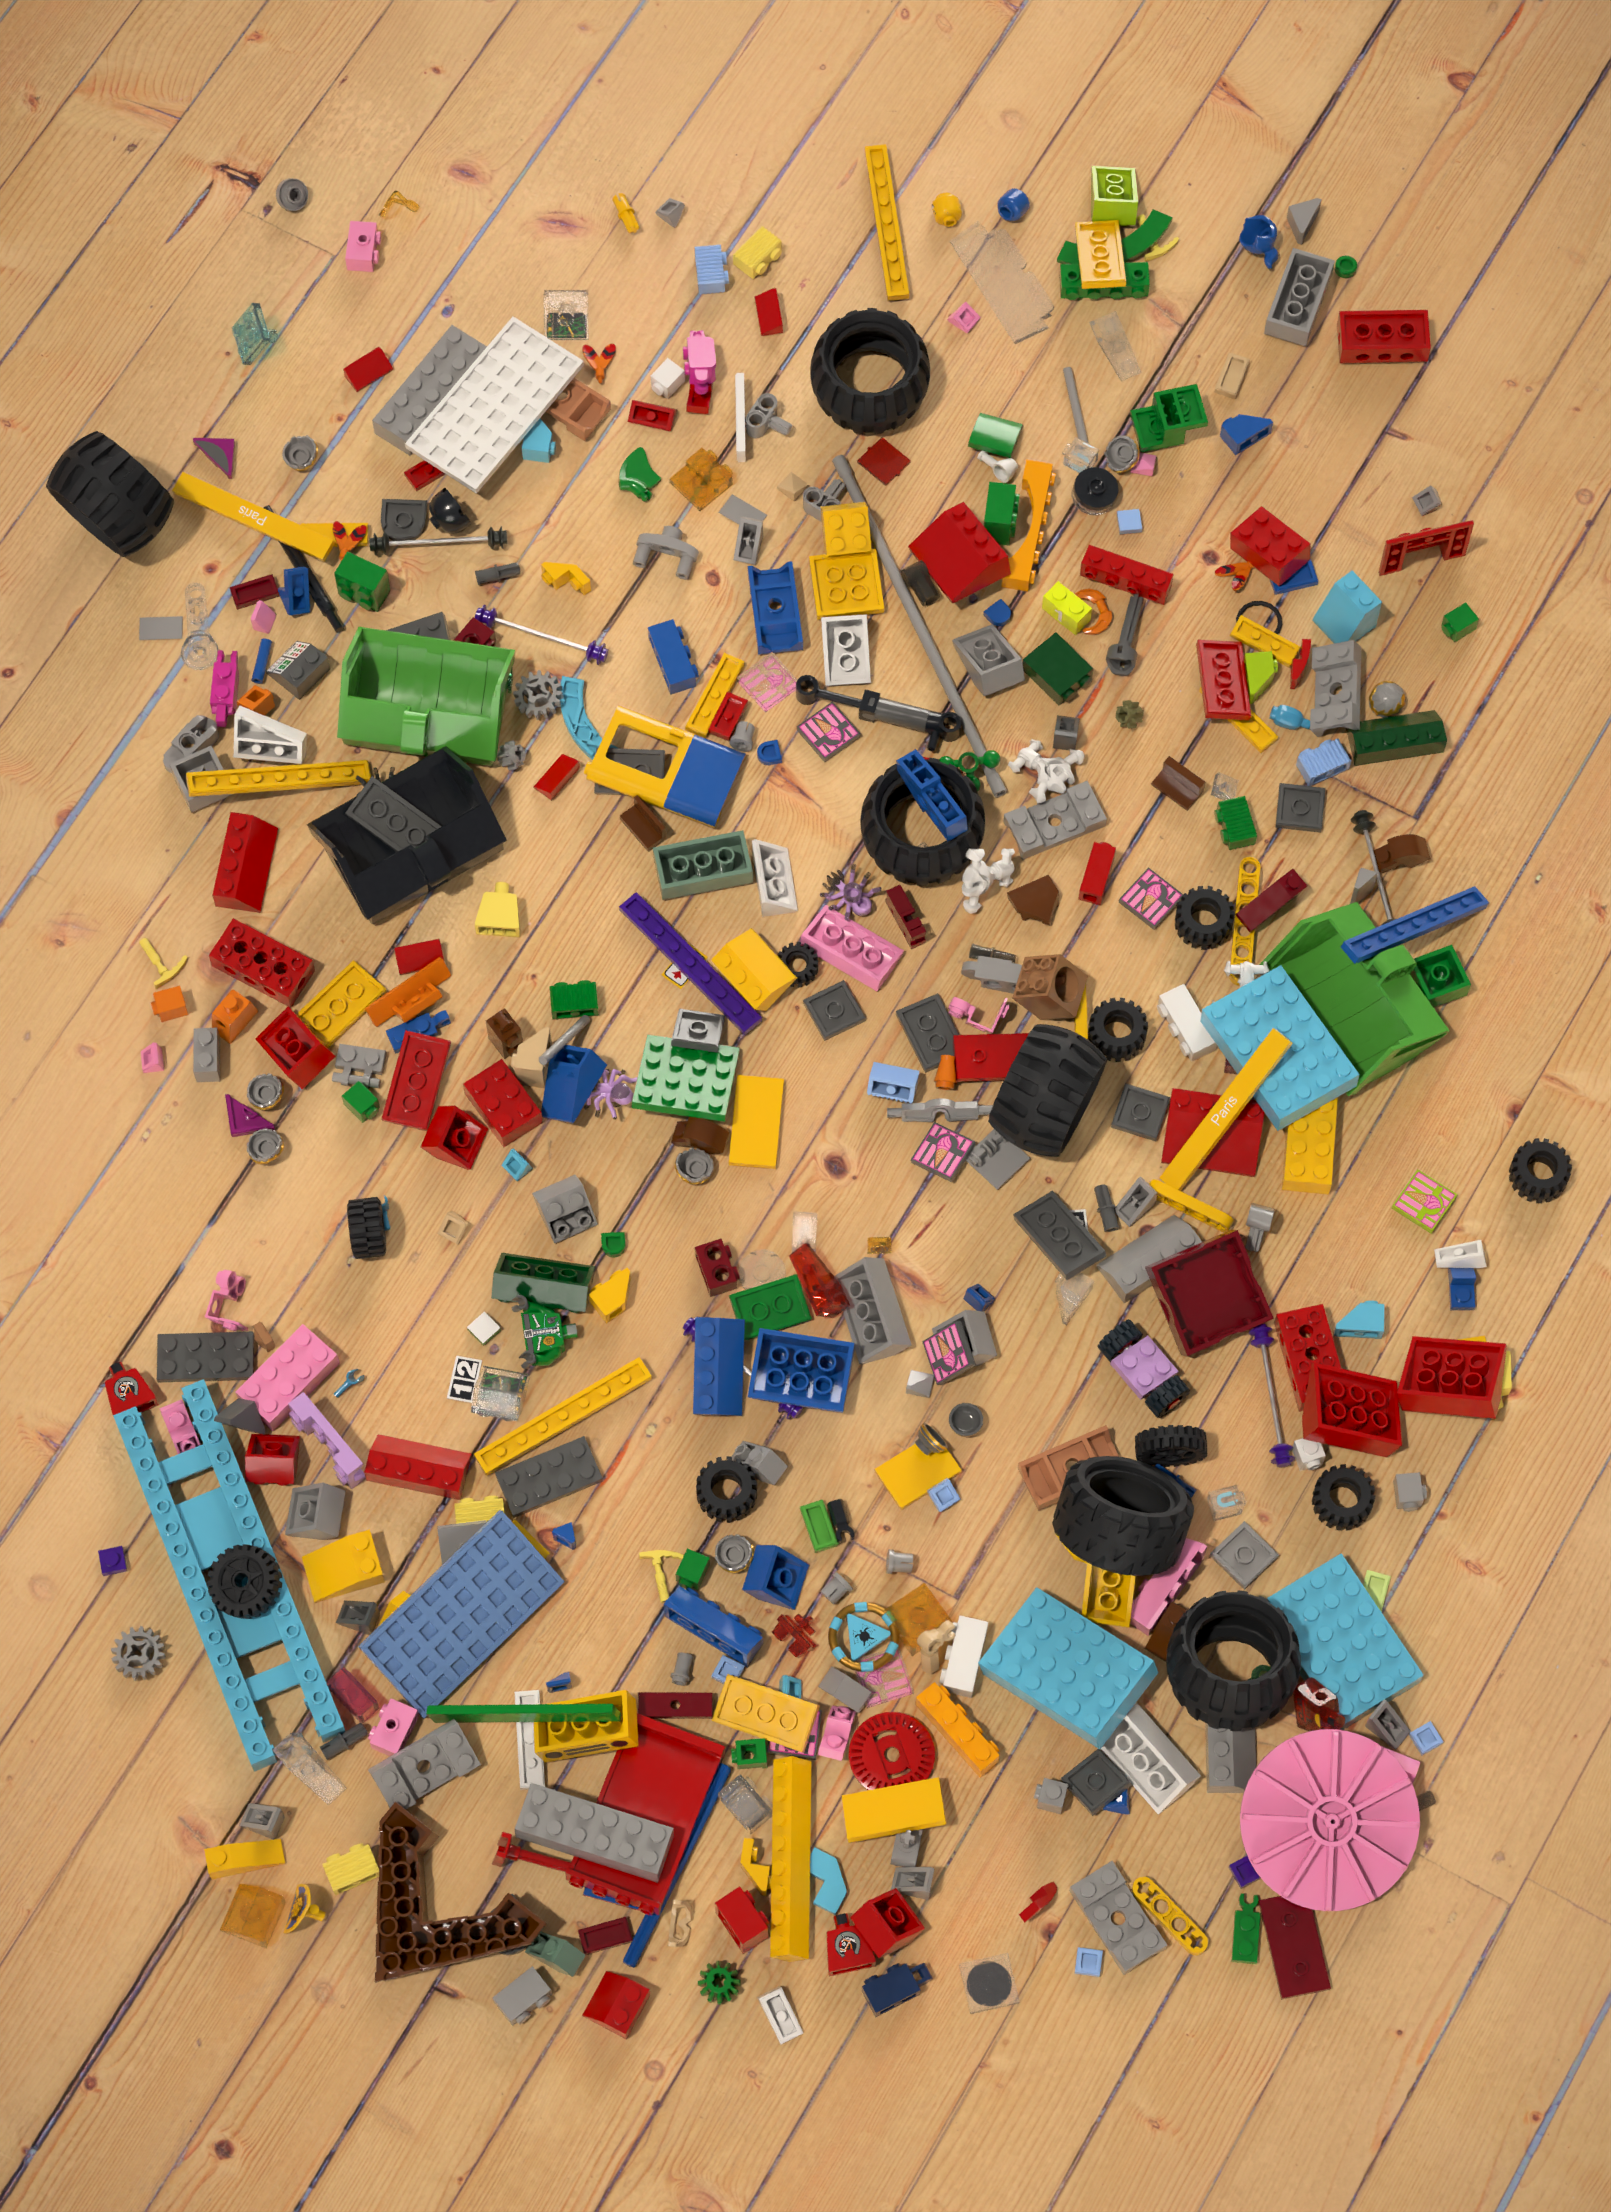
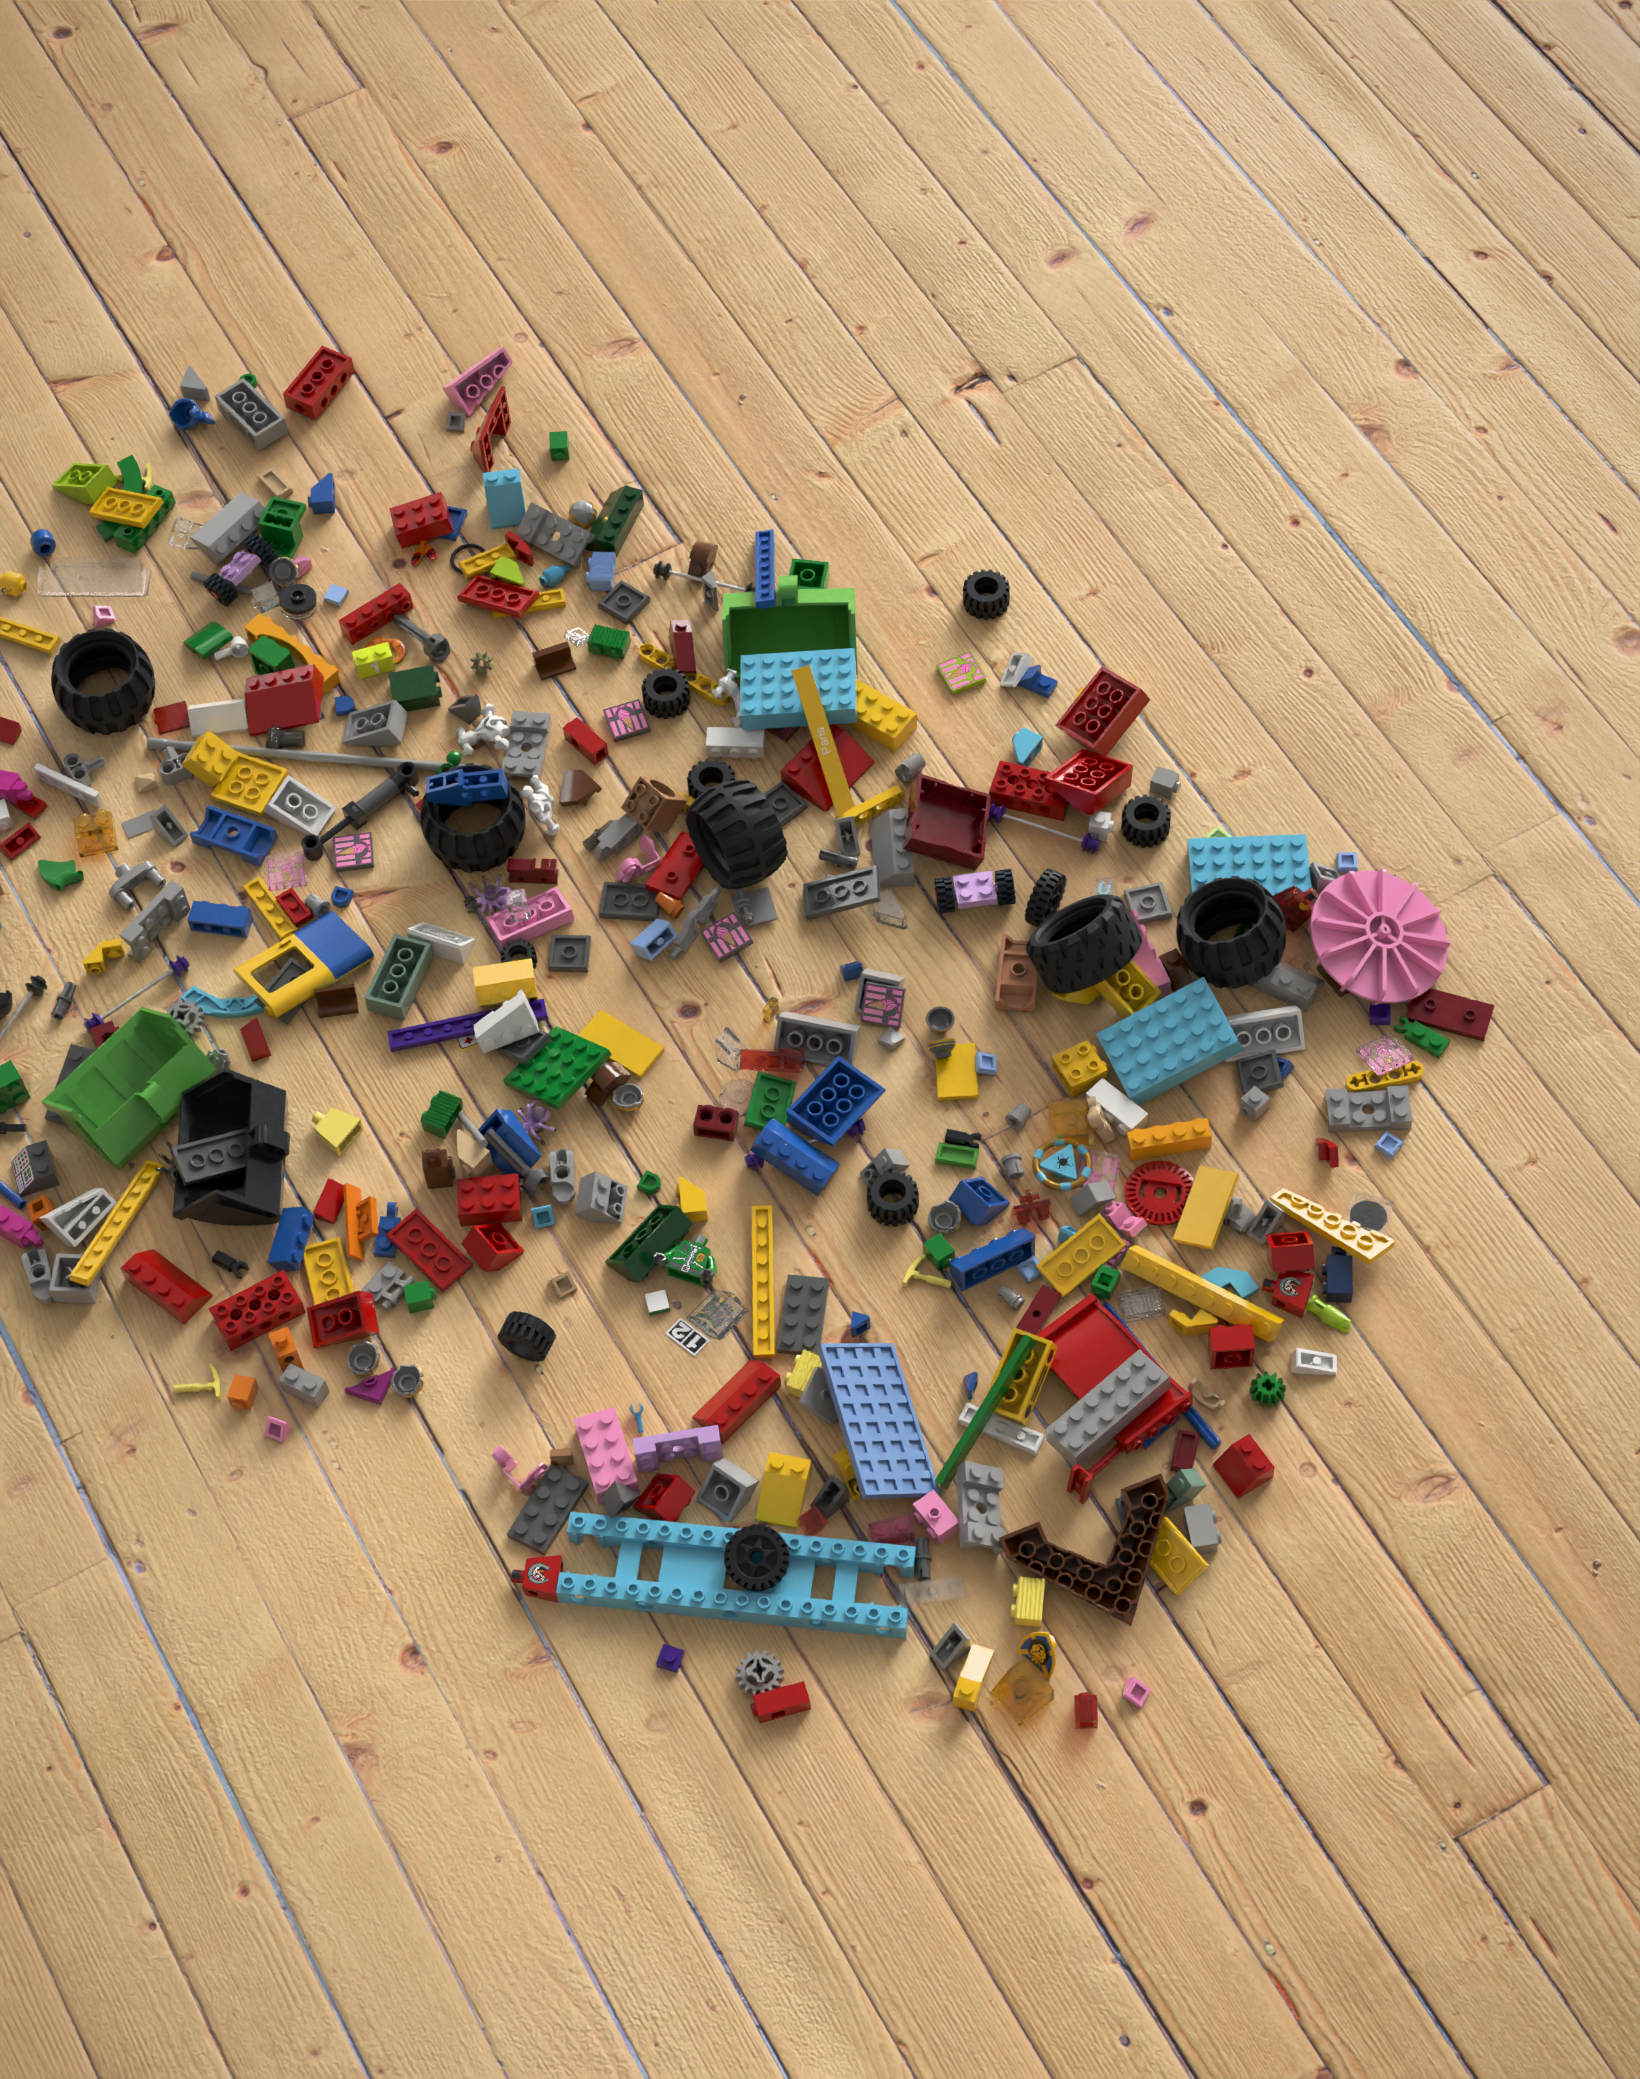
camera: 55 degrees left, 10 degrees down
(119, 1690) = (780, 1702): none -> red brick
(180, 1426) = (597, 1556): bright pink slope -> none
(264, 1985) = (1085, 1711): none -> clear red brick
(299, 905) = (229, 1263): none -> black bar
(312, 2024) = (1136, 1691): none -> bright pink slope
(319, 1612) = (812, 1522): none -> clear red brick
(353, 946) = (291, 1239): none -> blue brick
(474, 1986) = (1175, 1558): none -> yellow tile
(548, 1127) = (531, 1178): none -> dark grey piece
(555, 1167) = (563, 1188): none -> light grey piece
(631, 595) = (167, 905): none -> light grey piece
(704, 1000) = (507, 1024): none -> white wedge
(843, 2000) = (1328, 1314): none -> lime piece
(849, 927) = (518, 905): none -> clear brick
(908, 501) = (218, 717): none -> white slope
(943, 1971) = (1349, 1236): none -> yellow wing
(990, 1593) = (1079, 1067): none -> yellow brick
(1092, 410) = (242, 564): none -> plate
(1139, 367) = (228, 527): none -> light grey slope
(1196, 1901) = (1384, 1054): none -> clear tile
(1492, 489) = (473, 384): none -> bright pink wedge

